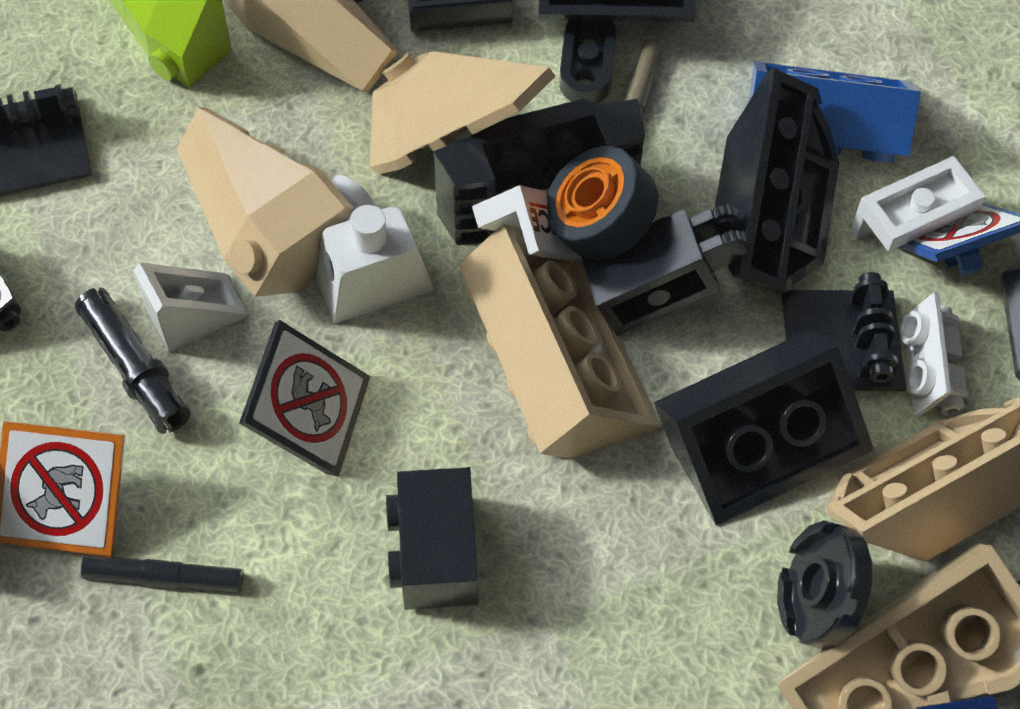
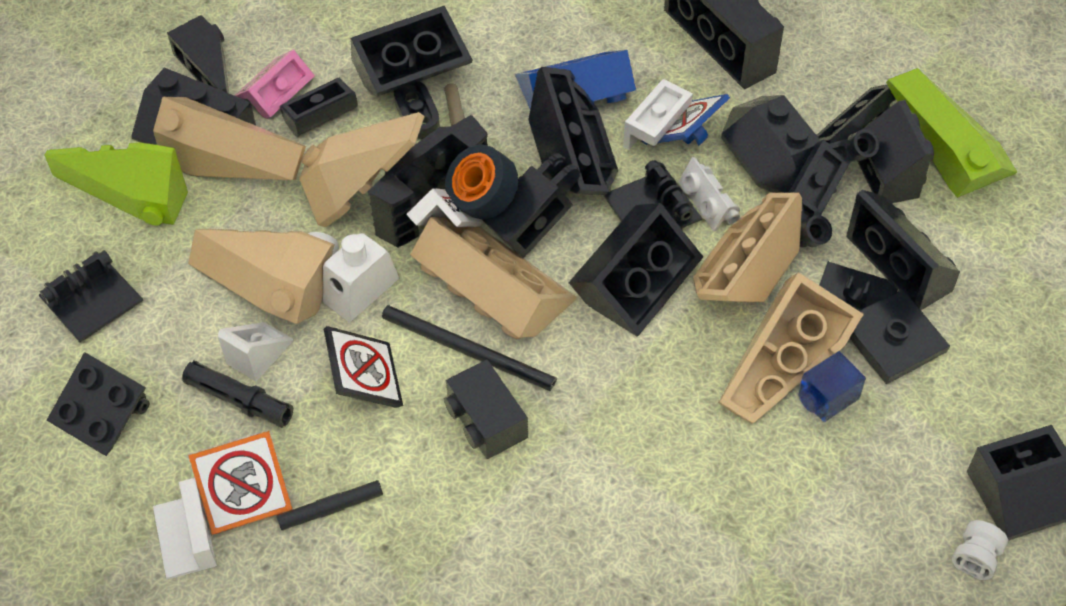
camera: 25 degrees left, 5 degrees down
(472, 436) = (469, 347): none -> black piece
(826, 585) = (719, 335): black tile -> none

